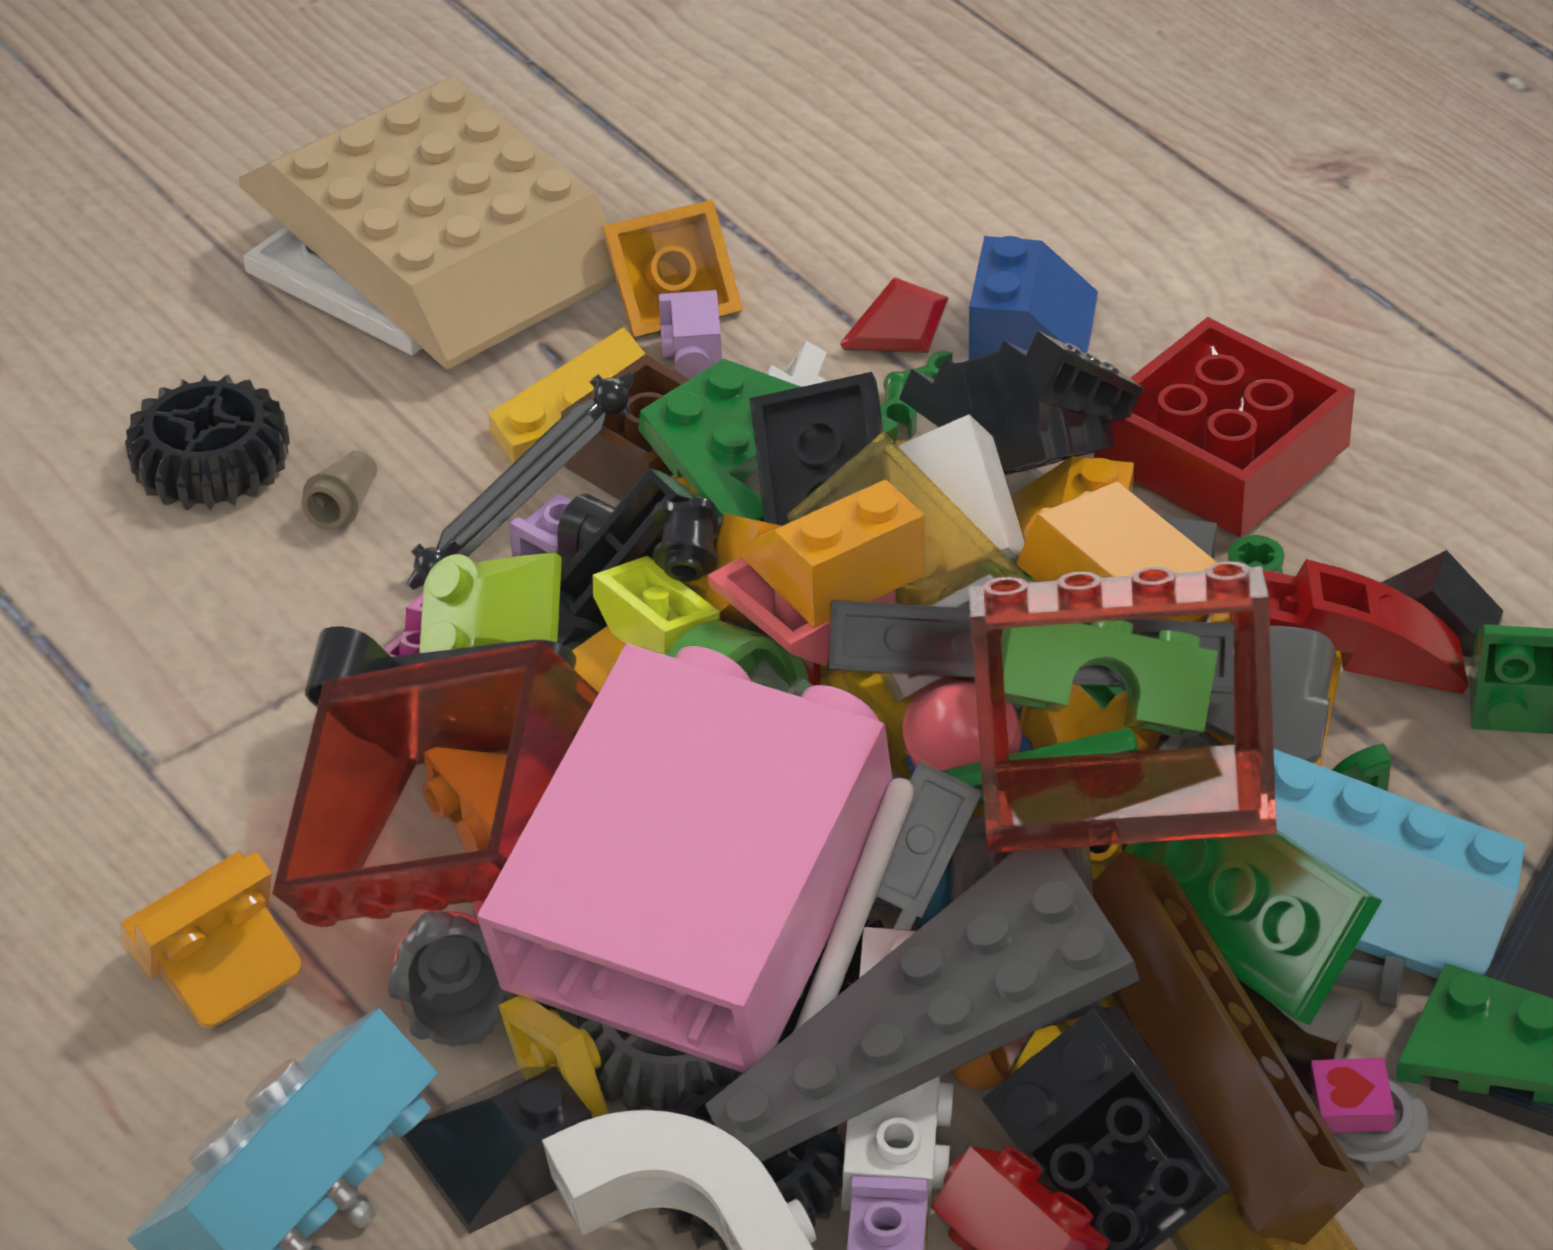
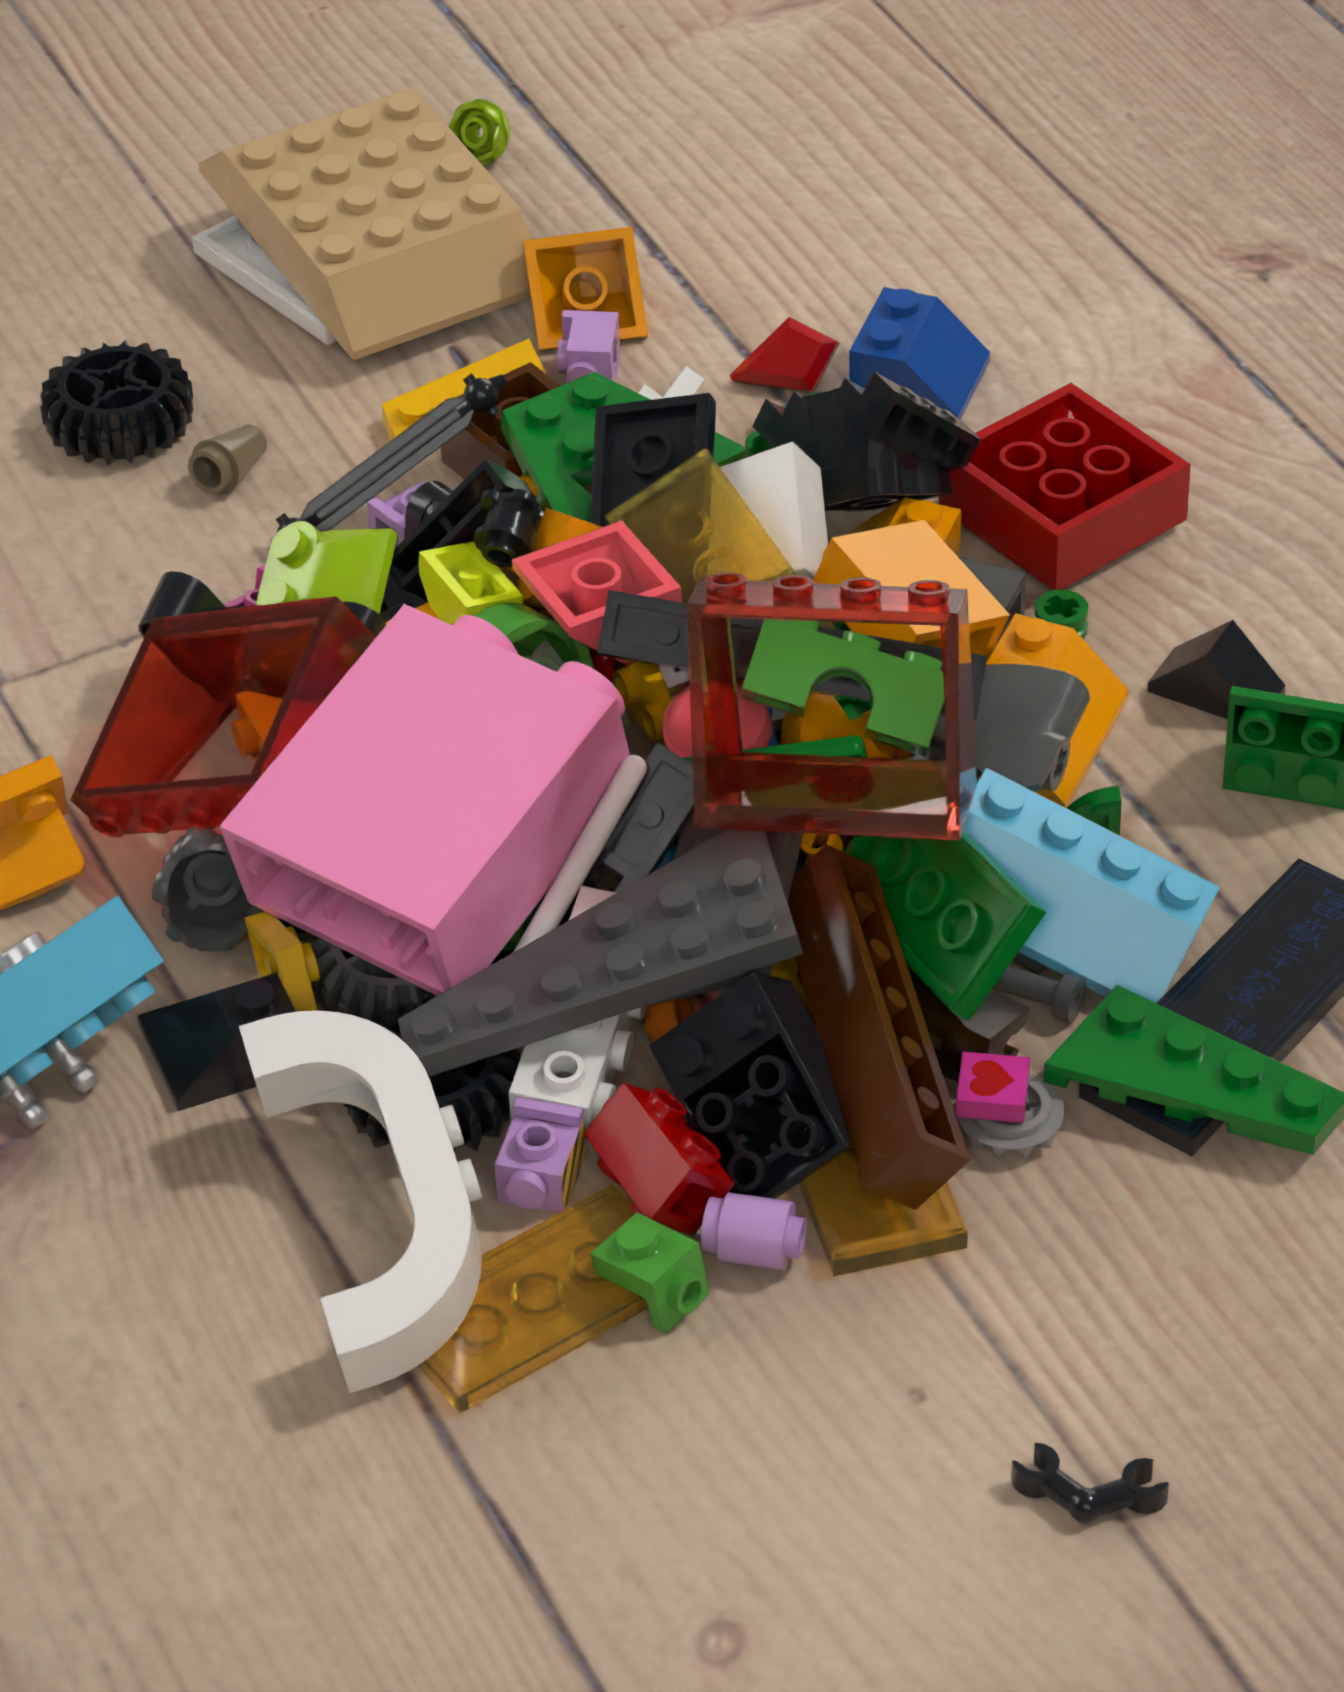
camera: 10 degrees right, 0 degrees up
(525, 99) = (496, 129): none -> lime plate
(843, 551) = (635, 548): light orange slope -> none
(1370, 625) = (1136, 675): red slope -> none

